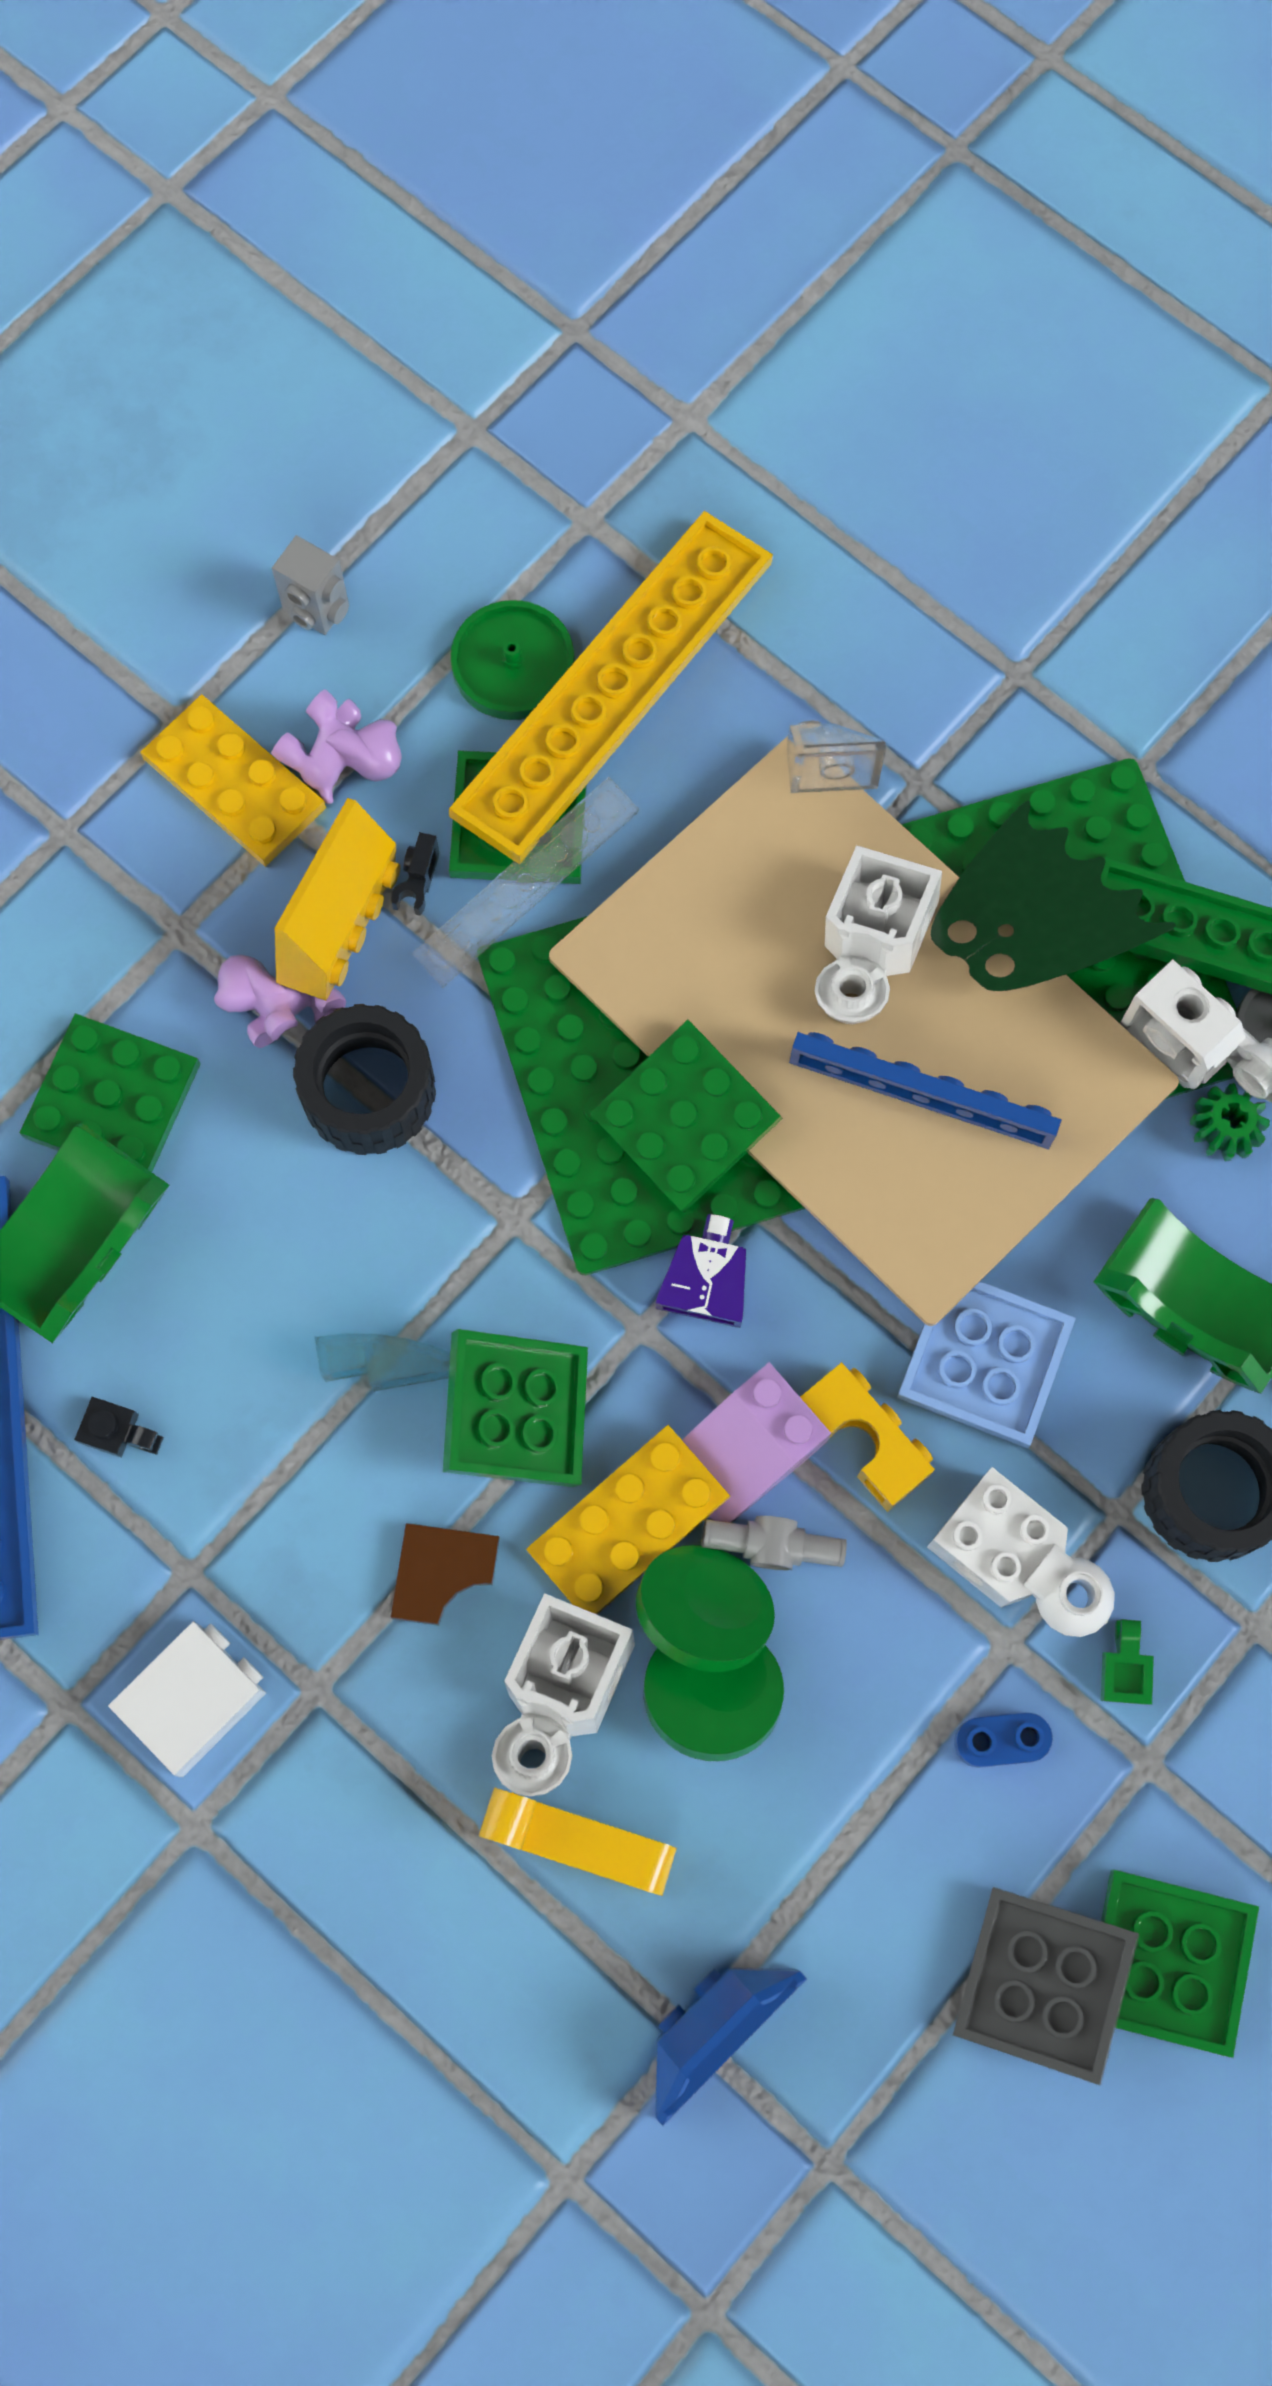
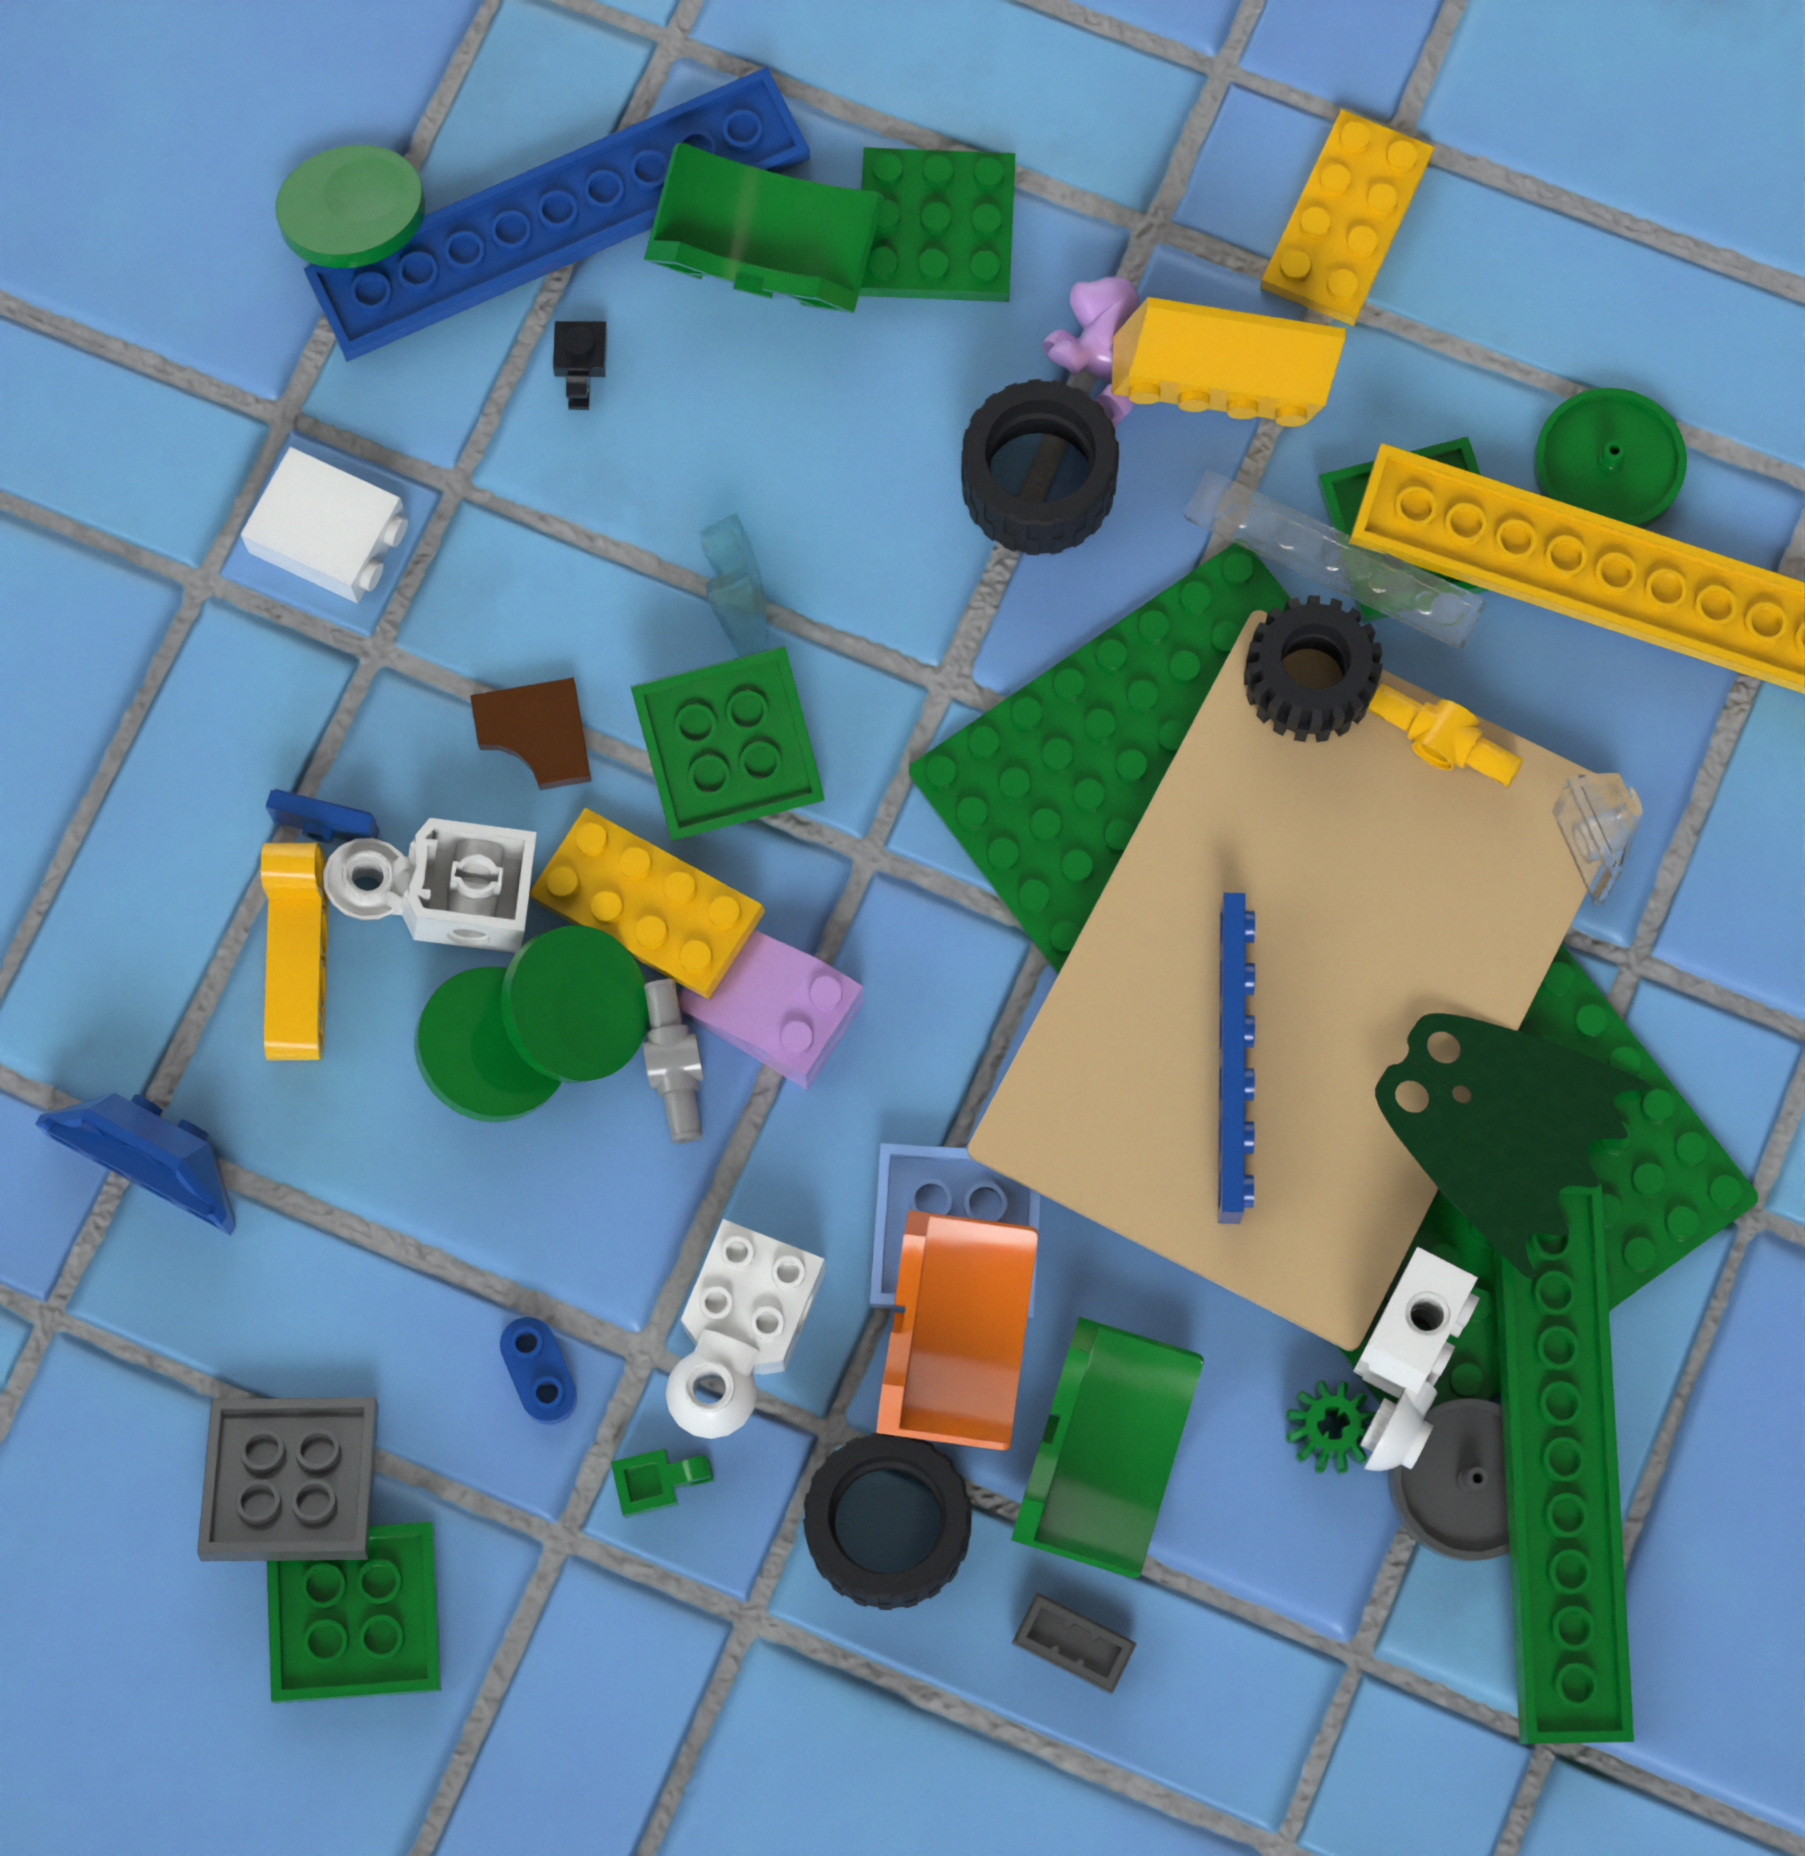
camera: 75 degrees right, 0 degrees up
(311, 586) = (1599, 209): light grey brick -> none
(368, 751) = (1424, 307): lavender animal -> none
(420, 865) = (1310, 446): black plate -> none
(460, 1782) = (319, 818): none -> blue plate
(622, 888) = (1321, 629): none -> black tyre
(686, 1116) = (1117, 814): green plate -> none
(706, 1276) = (944, 898): dark purple torso -> none
(708, 844) = (1445, 735): none -> yellow pin
(874, 931) = (1408, 947): white brick -> none
(898, 1463) = (802, 1164): yellow arch -> none
(1085, 1381) = (961, 1333): none -> orange panel

